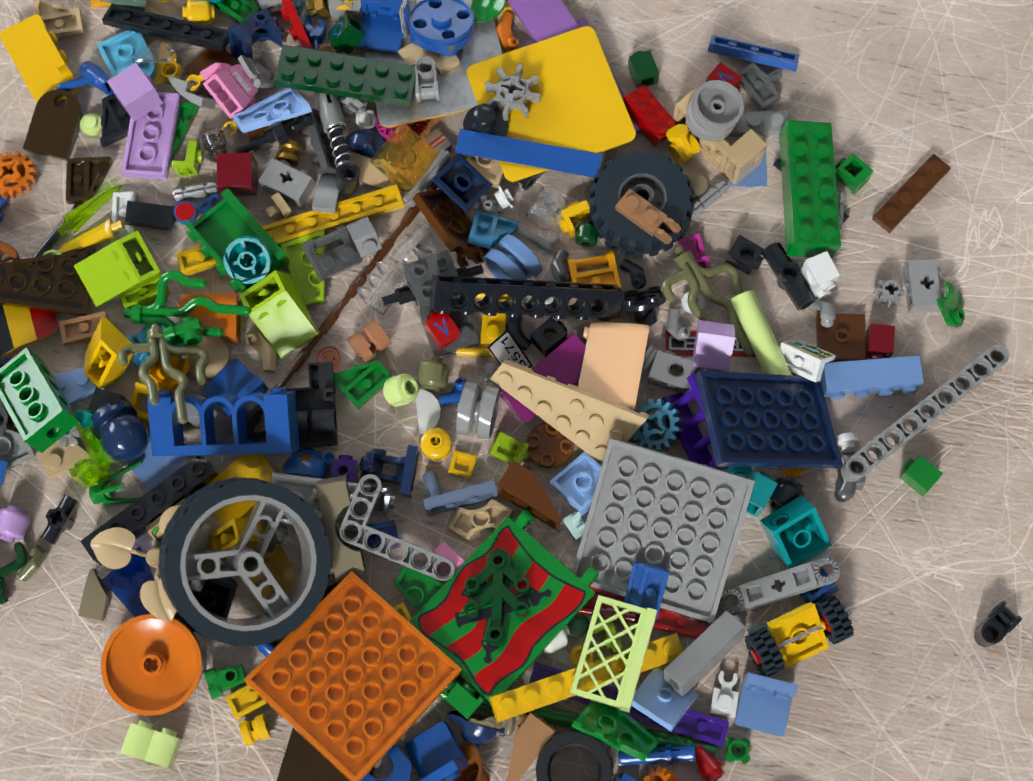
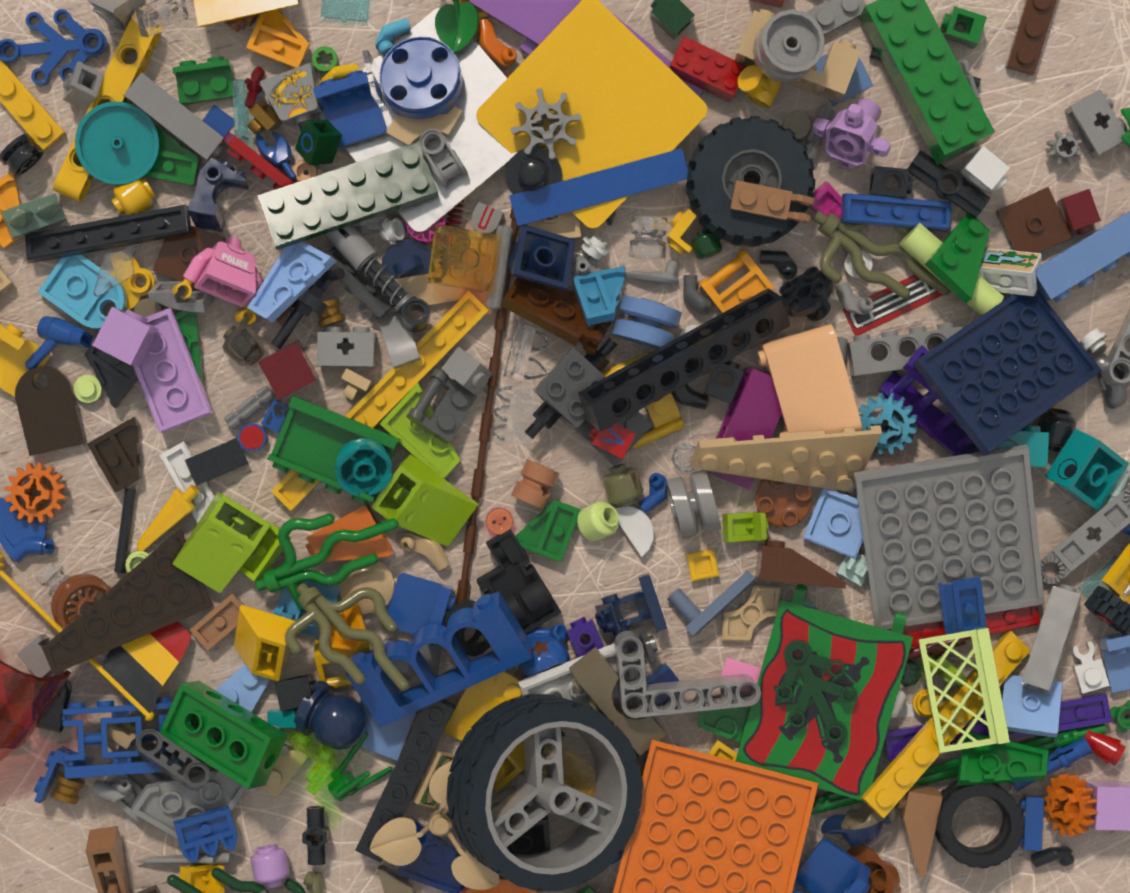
camera: 25 degrees left, 15 degrees up
(79, 216) = (140, 498): clear neon green bar -> none
(188, 331) = (343, 576): green plate -> none
(191, 165) = (227, 369): lime bracket -> none
(258, 71) = (241, 235): light grey piece -> none
(439, 451) = (664, 550): yellow head -> none
(463, 698) = (833, 809): green brick -> none
(507, 348) = (693, 423): white sticker -> none
(713, 345) = (908, 309): lavender head -> none
(733, 204) = (853, 134): none -> lavender piece
(739, 275) = (895, 212): none -> blue tile
(772, 327) = (960, 257): none -> green wing
(827, 313) = (1009, 206): light grey arm -> none

